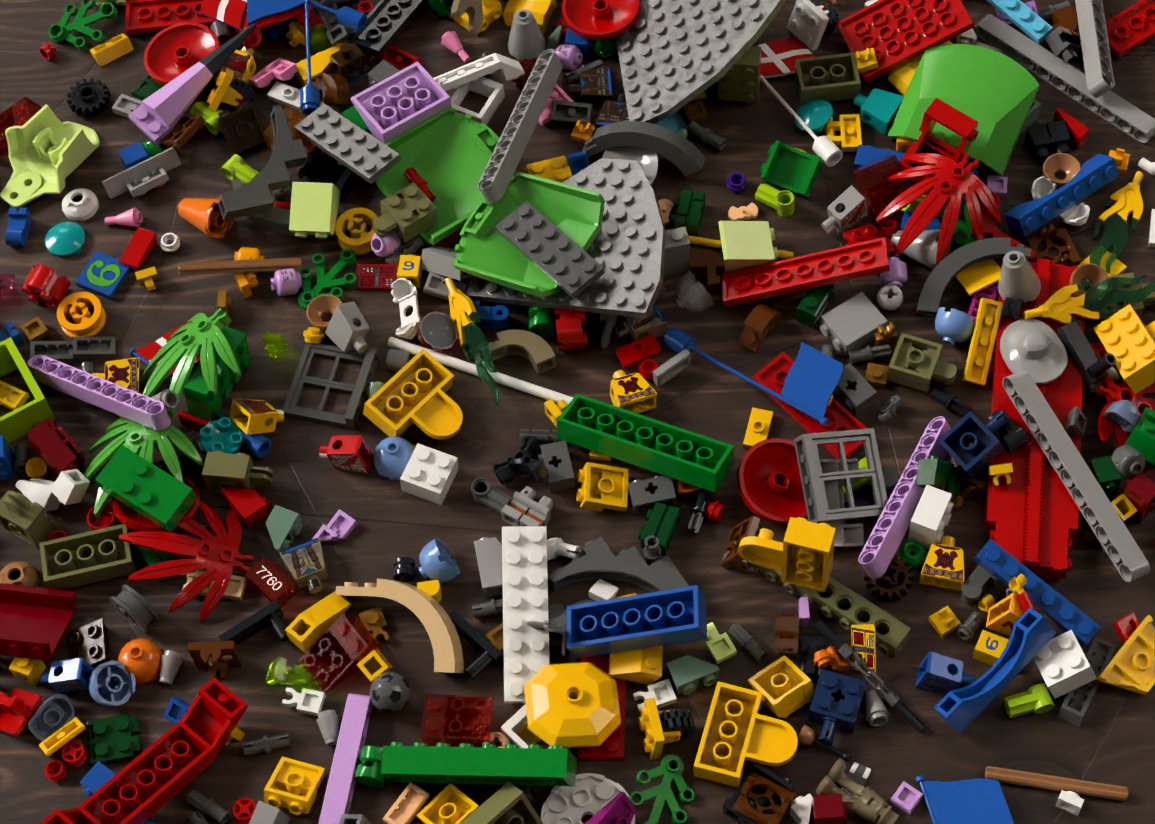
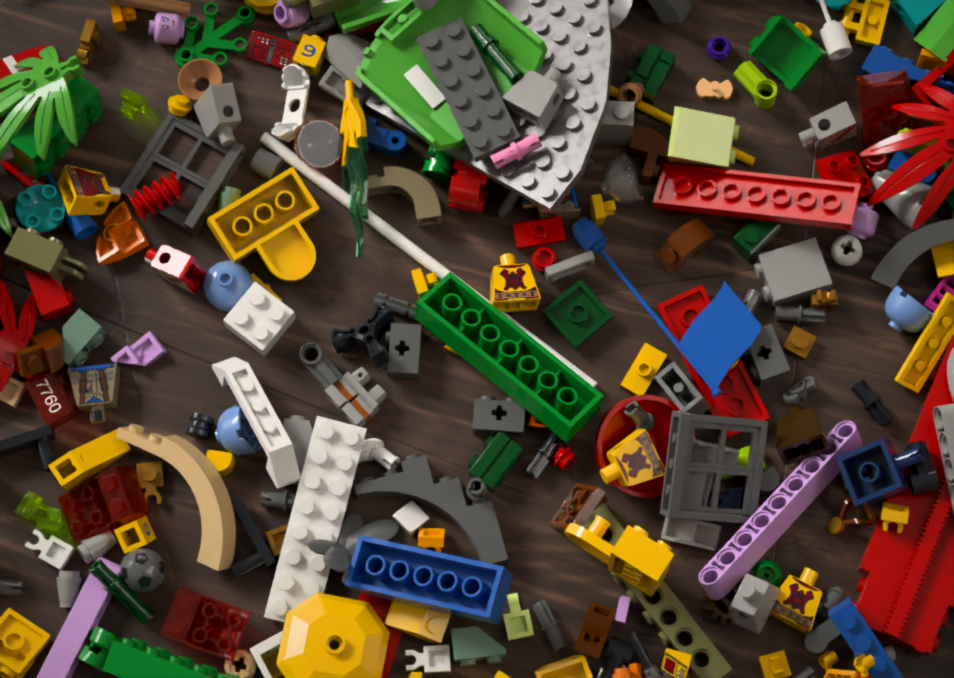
camera: 15 degrees right, 15 degrees up
(254, 546) = (43, 355): none -> reddish brown brick
(292, 445) = (121, 236): none -> orange brick
(315, 403) = (157, 196): none -> red piece
(341, 688) = (96, 546): none -> light grey cone
(369, 707) = (114, 584): none -> dark green pin
(483, 569) = (265, 423): none -> white slope
(512, 260) = (424, 86): none -> white sticker
(557, 215) = (490, 47): none -> dark green pin
(602, 487) = (447, 393): yellow plate -> none
(603, 280) = (516, 150): none -> bright pink pin
(606, 239) = (536, 97): none -> light grey torso
(665, 209) = (623, 61): light nougat piece -> none
(673, 224) = (625, 92): none -> medium nougat cone
(682, 320) = (600, 209): none -> yellow tile
(690, 401) = (577, 314): none -> dark green plate
(772, 459) = (639, 416): none -> dark grey pin
(774, 490) = (633, 460): none -> torso
(790, 427) = (682, 390): none -> dark grey brick
(903, 437) = (800, 435): none -> dark brown torso
(913, 562) = (753, 600): none -> light grey torso
(918, 363) = (850, 346): olive brick -> none
(930, 517) = (797, 542): white brick -> none
(939, 475) = (824, 497): dark green piece -> none
(971, 552) = (834, 597): none -> dark grey pin

